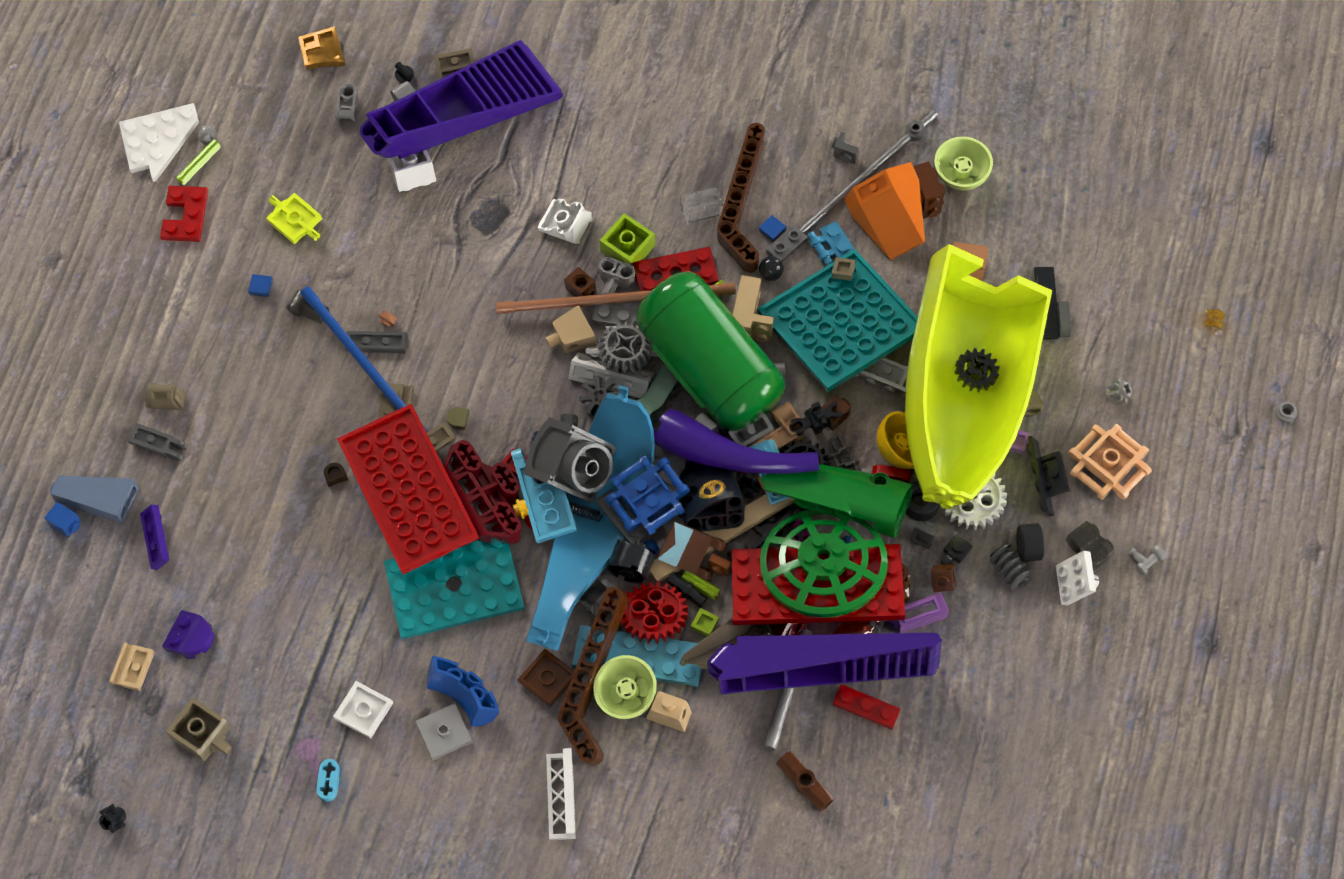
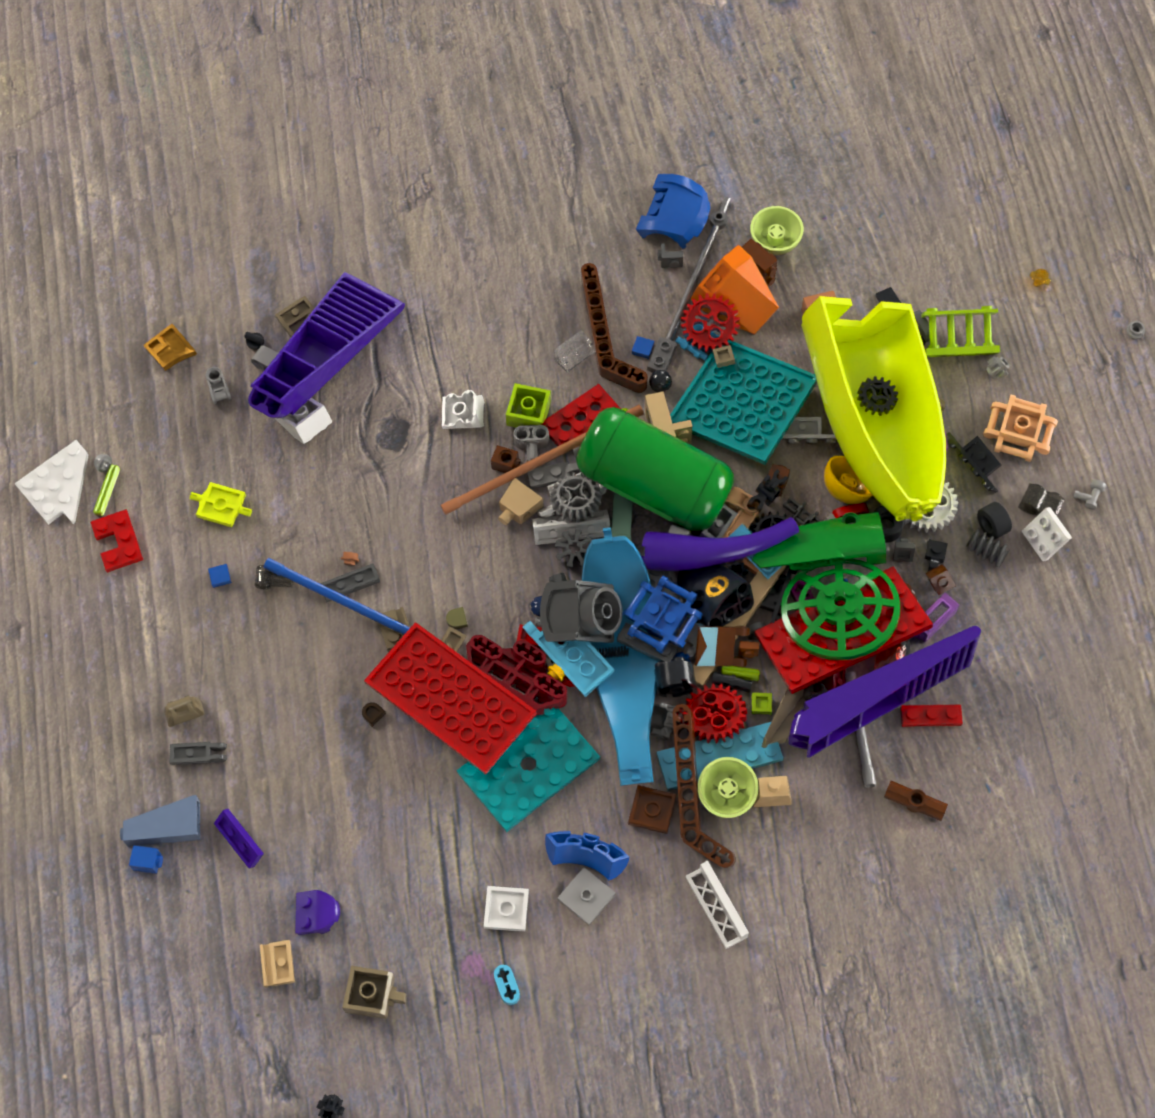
camera: 25 degrees left, 0 degrees up
(859, 217) = (717, 307): none -> red gear
(876, 105) = (677, 209): none -> blue piece
(1100, 361) = (970, 347): none -> lime fence

